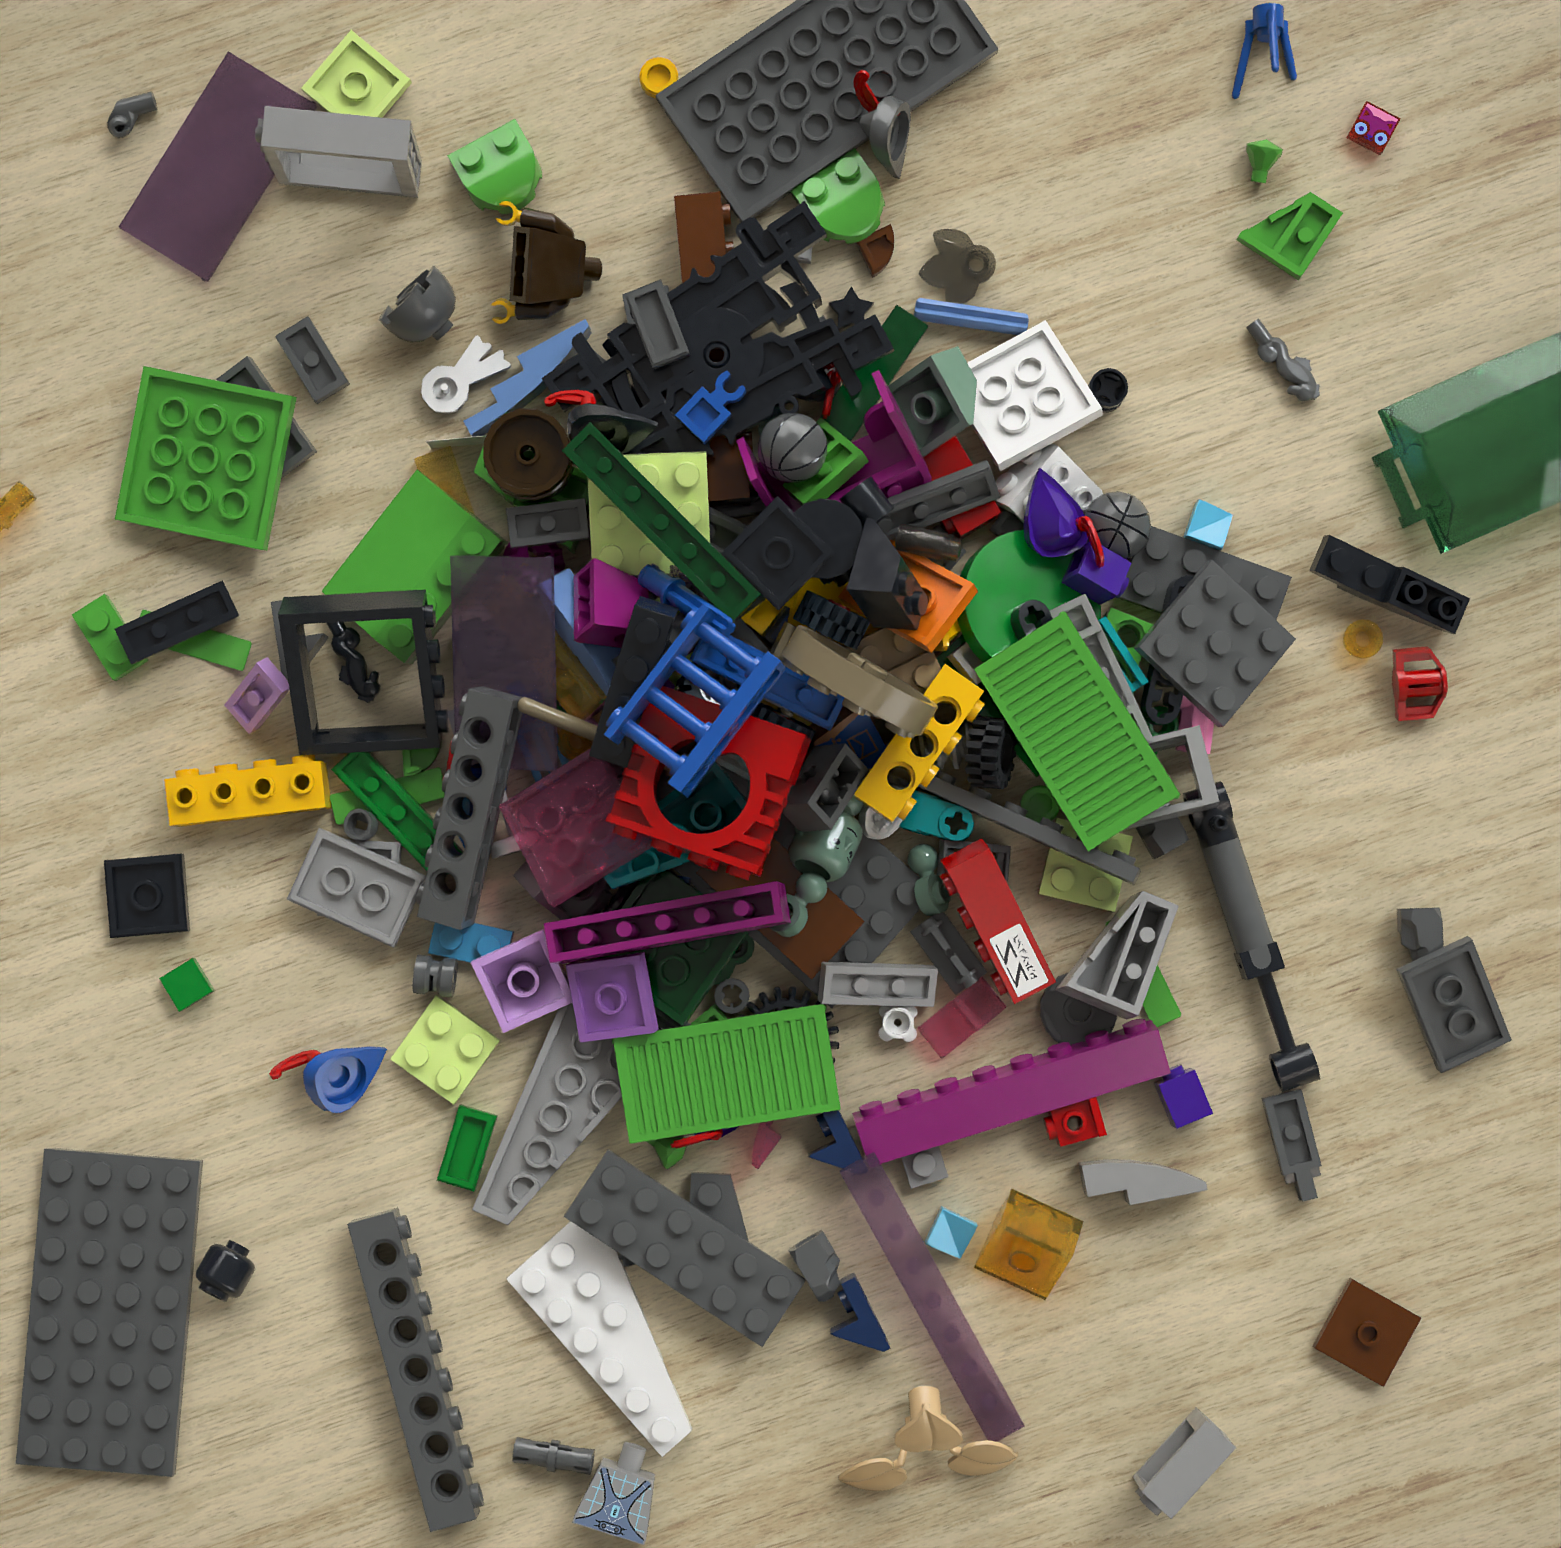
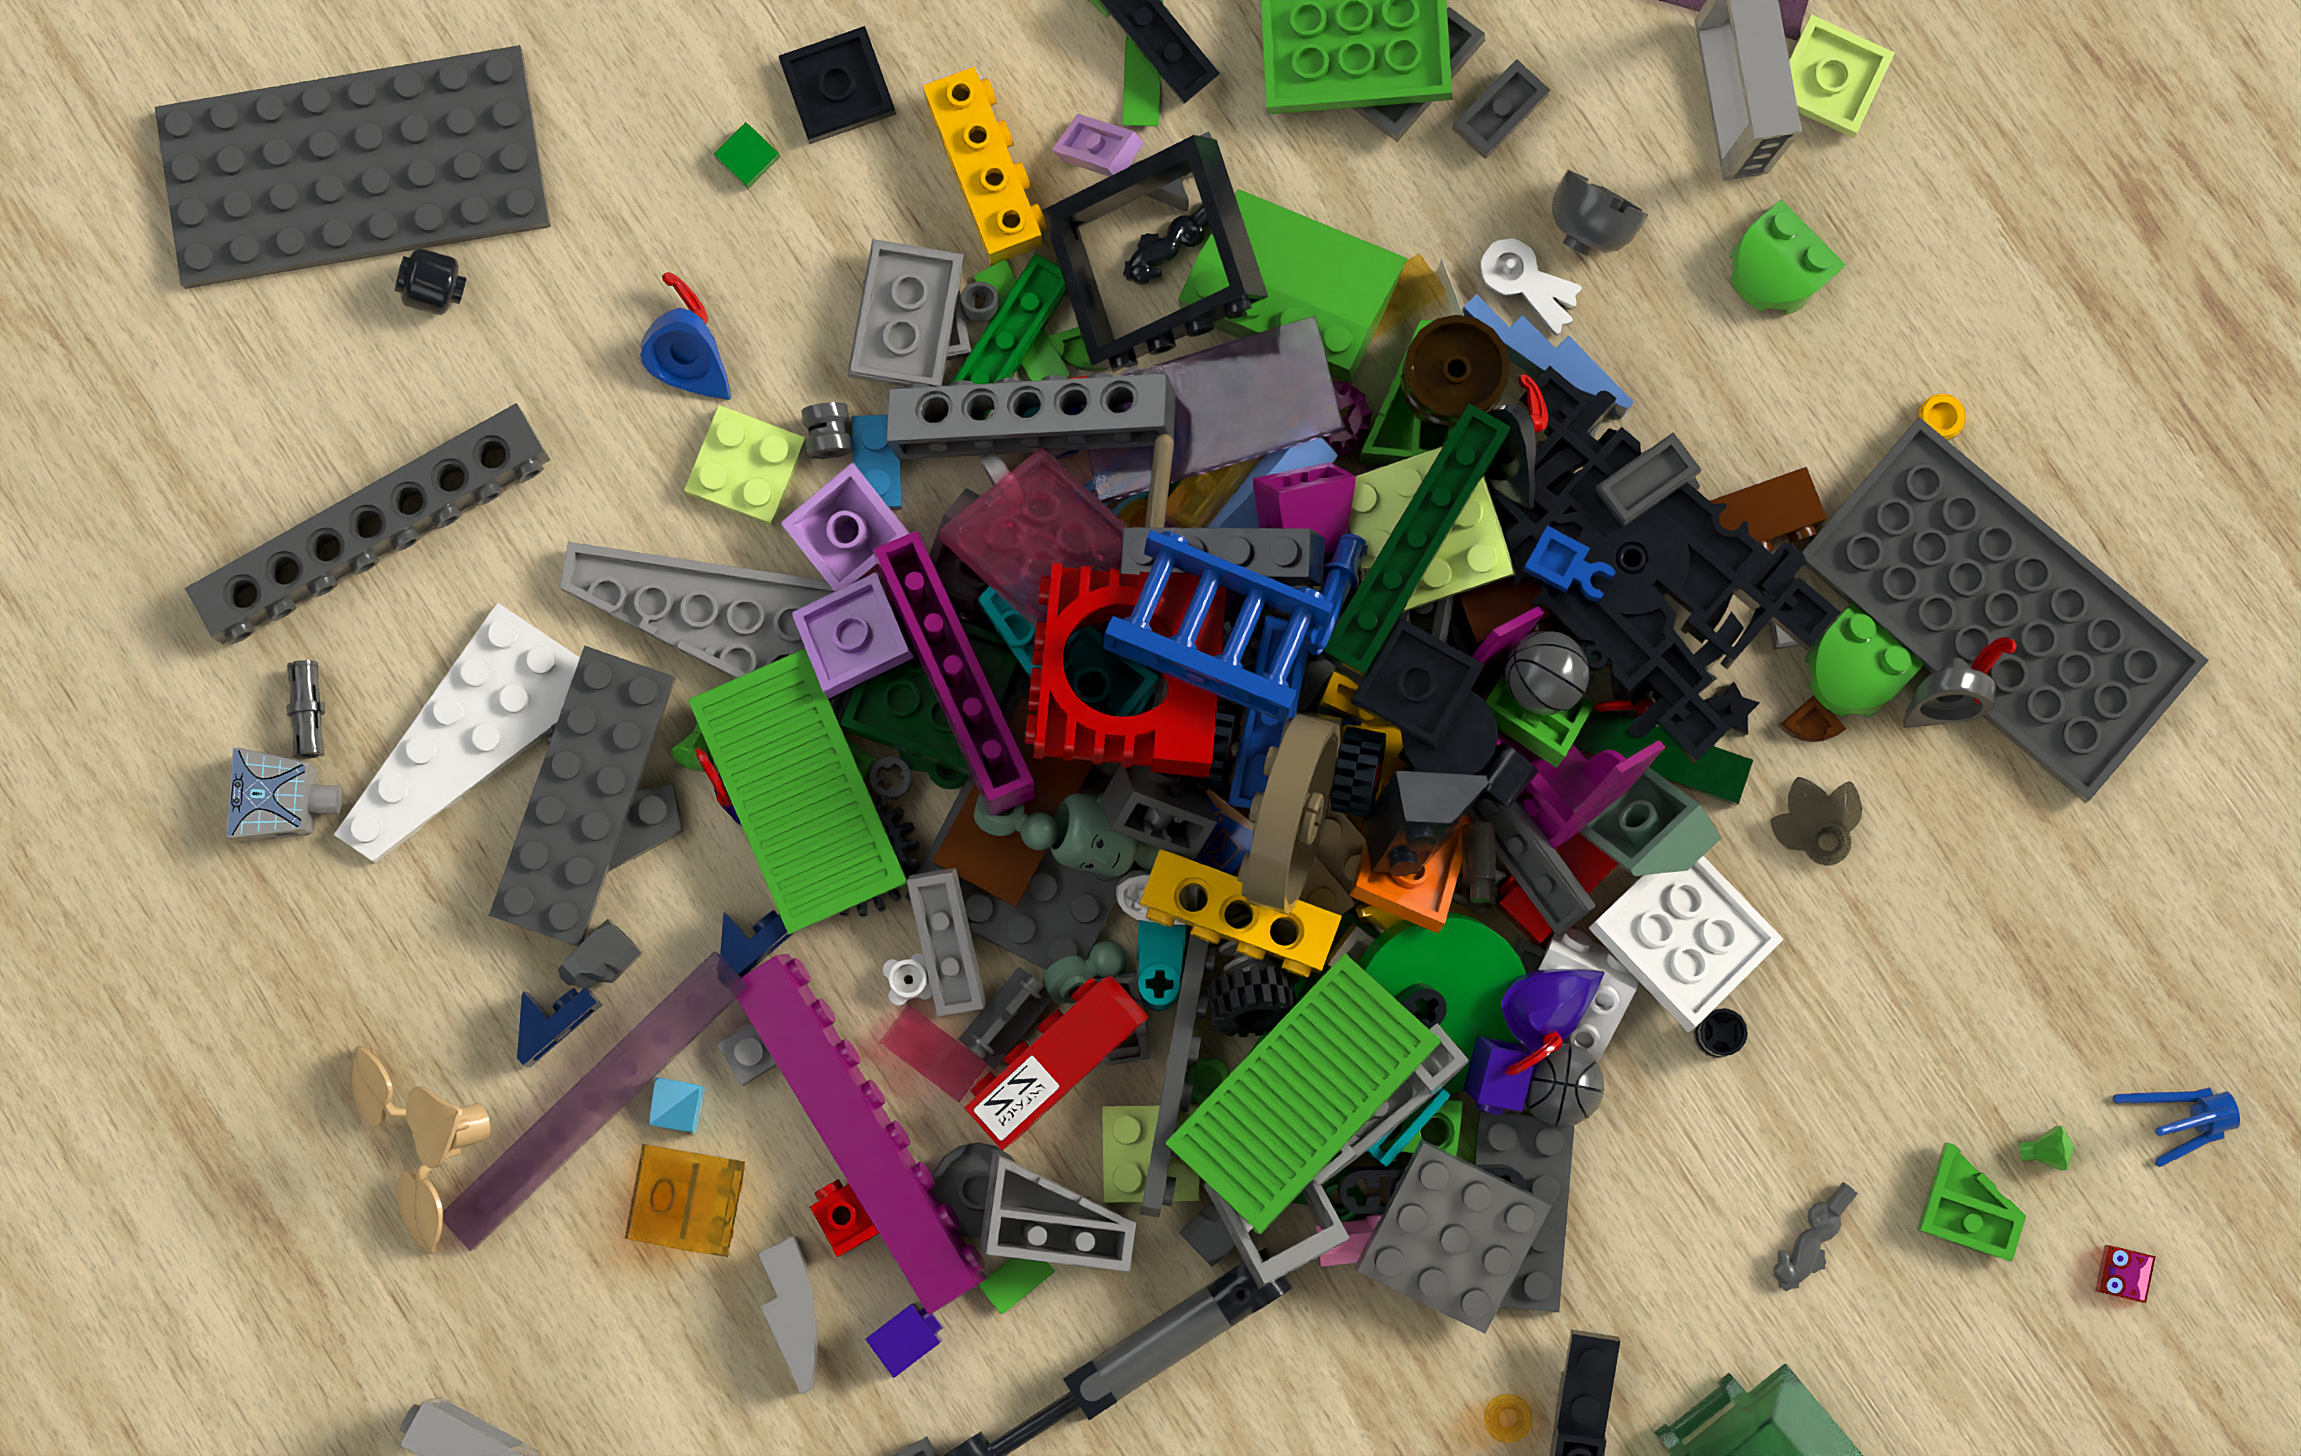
camera: 65 degrees right, 5 degrees down
(467, 1147) = (638, 519): green tile -> none
(545, 265) = (1683, 341): dark brown torso -> none
(548, 523) = (1382, 416): dark grey plate -> none
(765, 1141) = (727, 857): clear pink slope -> none
(971, 316) = (1763, 851): medium blue axle -> none
(1208, 525) = (1593, 1196): medium azure slope -> none

